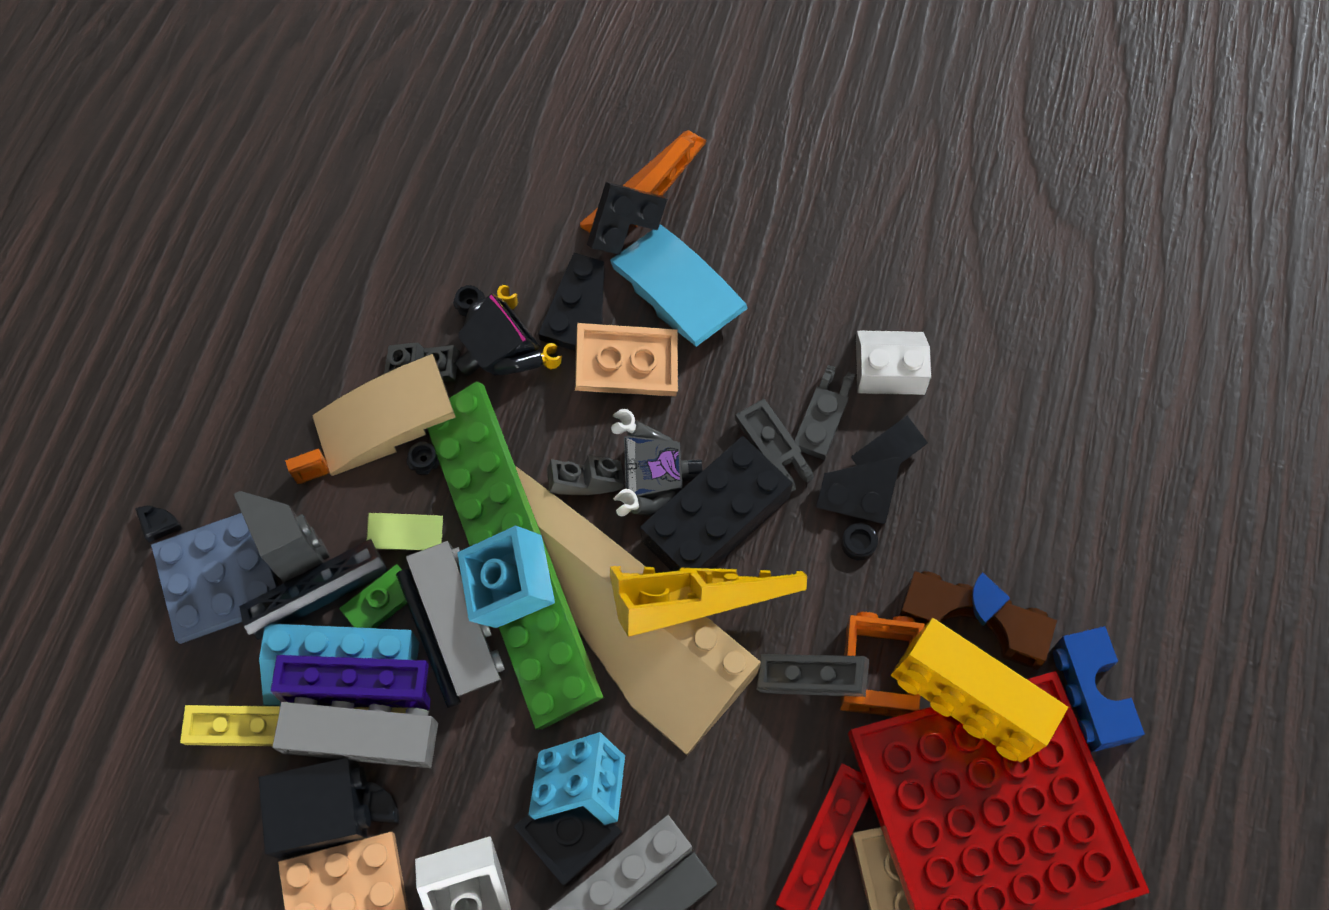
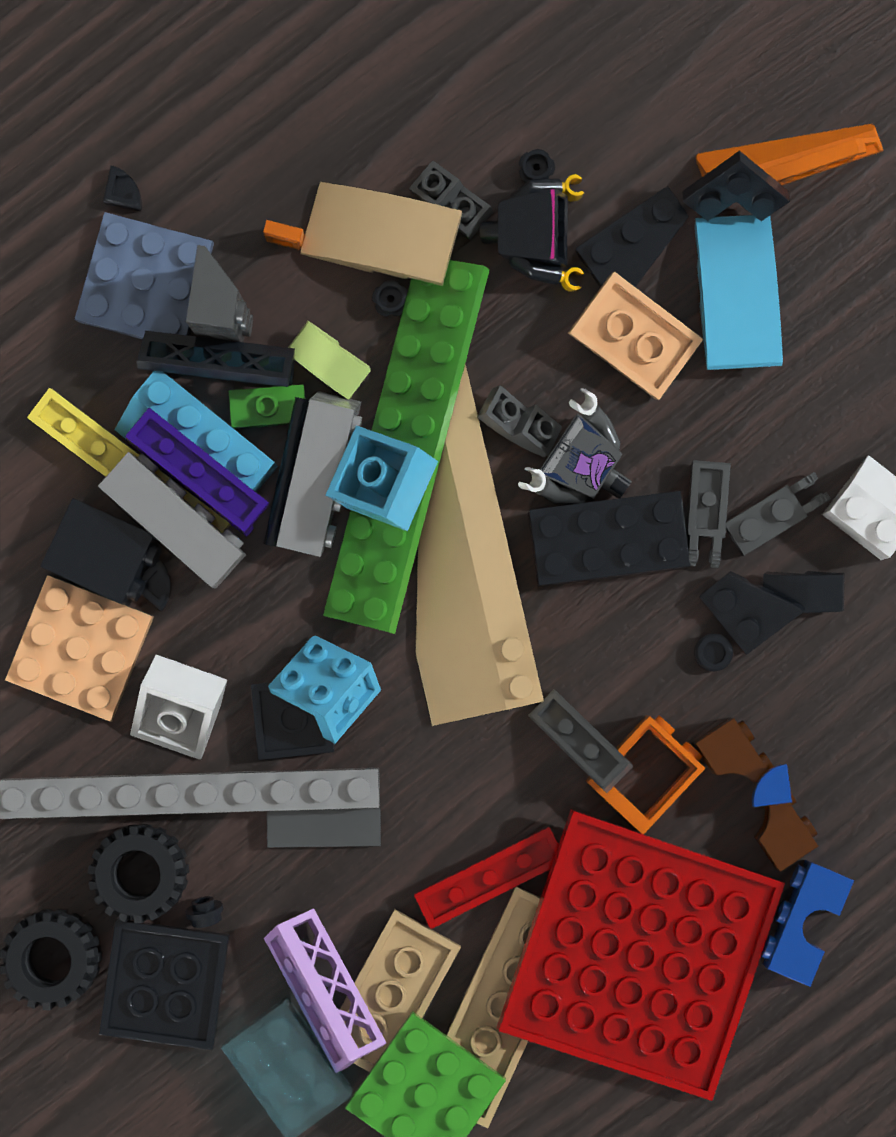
camera: 30 degrees right, 20 degrees up
(669, 598) = (503, 593): yellow wedge -> none
(979, 692) = (696, 860): yellow brick -> none

